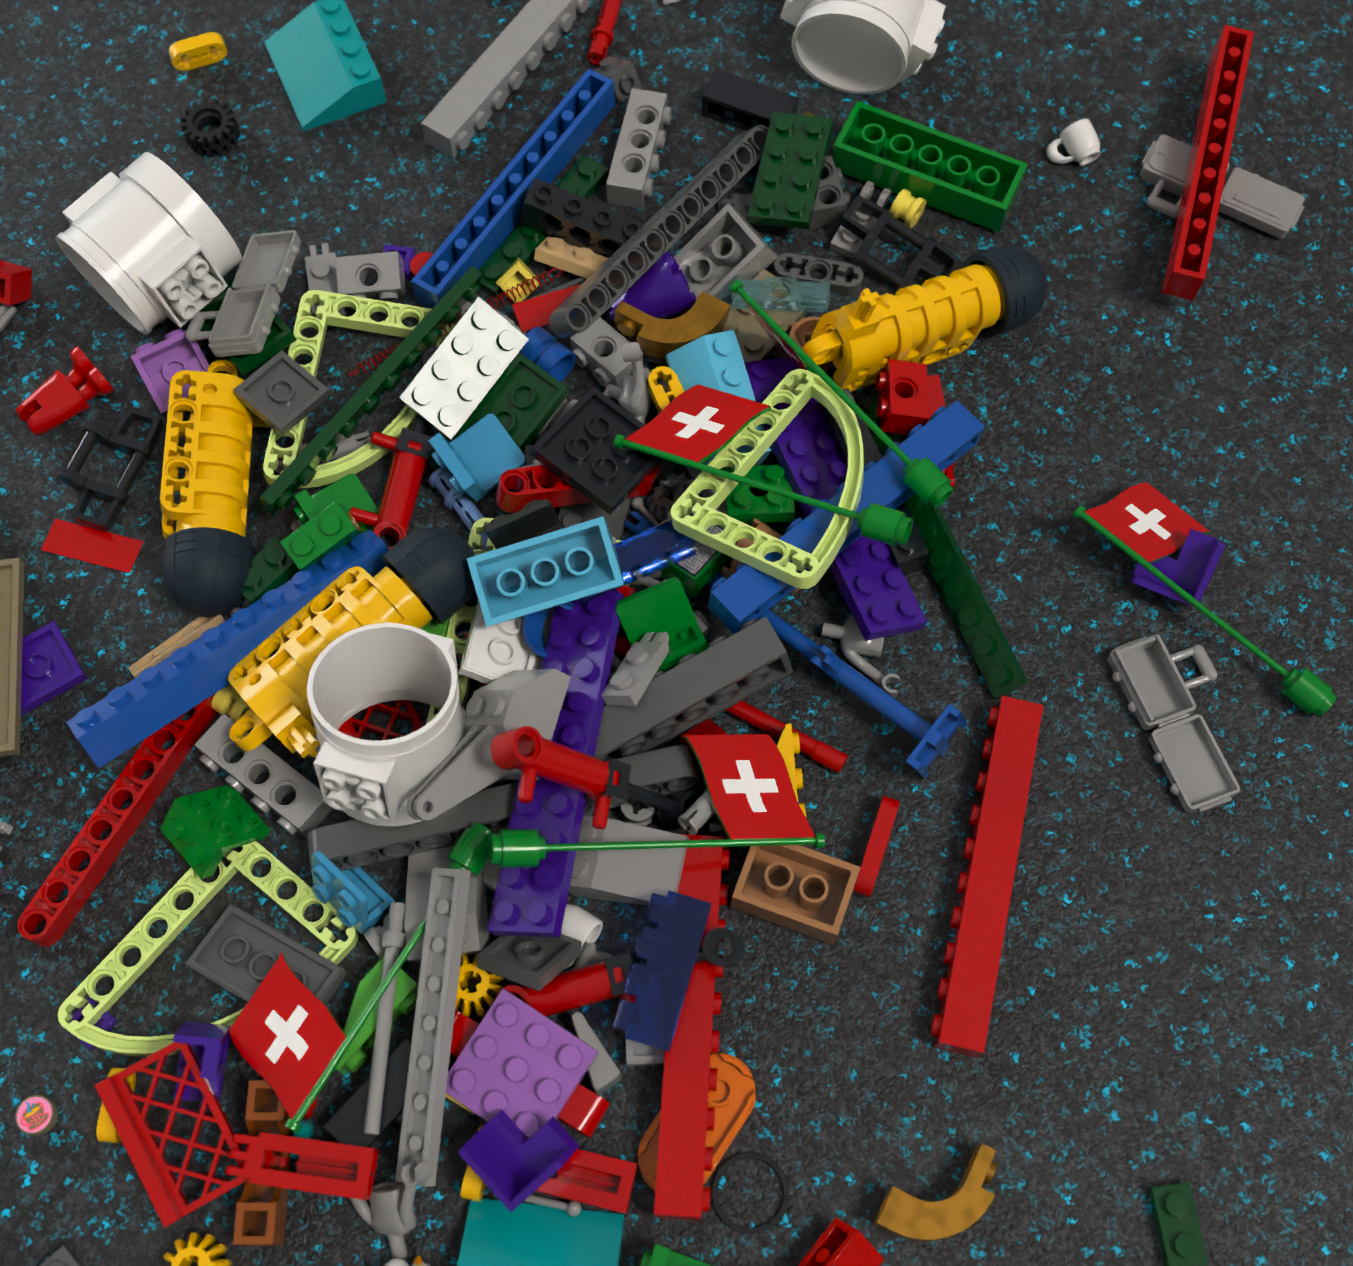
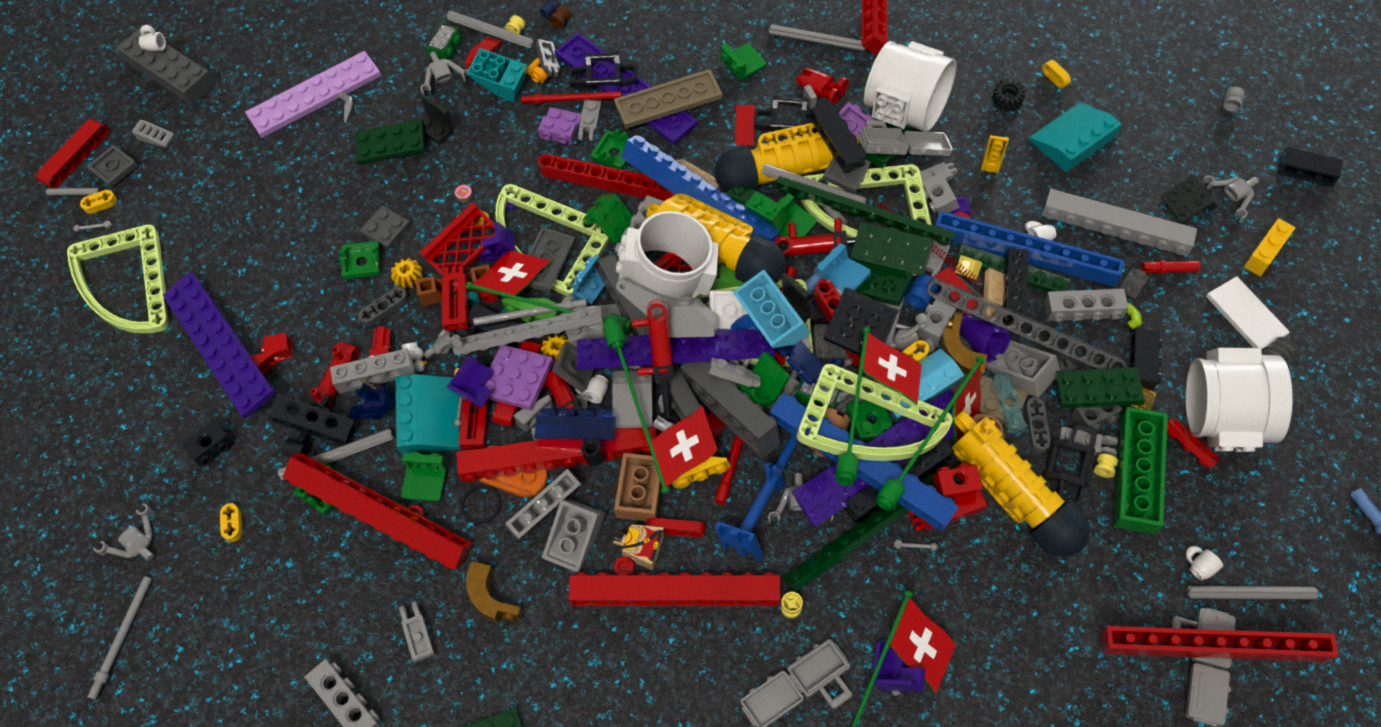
camera: 80 degrees right, 5 degrees down
(35, 780) = (609, 142): none -> green piece
(77, 417) = (811, 96): none -> light grey tile
(217, 380) = (837, 136): none -> black brick
(250, 498) = (775, 172): none -> light grey axle
(325, 177) = (993, 153): none -> yellow slope
(491, 163) = (1043, 231): none -> white piece
(683, 97) = (1135, 315): none -> lime arm
(789, 1069) = (542, 504): none -> light grey brick
(853, 1024) = (572, 534): none -> light grey slope
(897, 909) = (641, 544): none -> torso
(898, 96) = (1191, 443): none -> red plate
(927, 949) = (624, 565): none -> red tile
(969, 516) = (898, 544): none -> light grey hinge
(1050, 687) = (790, 601): none -> light yellow wheel
(1125, 108) = (1251, 592): none -> light grey axle

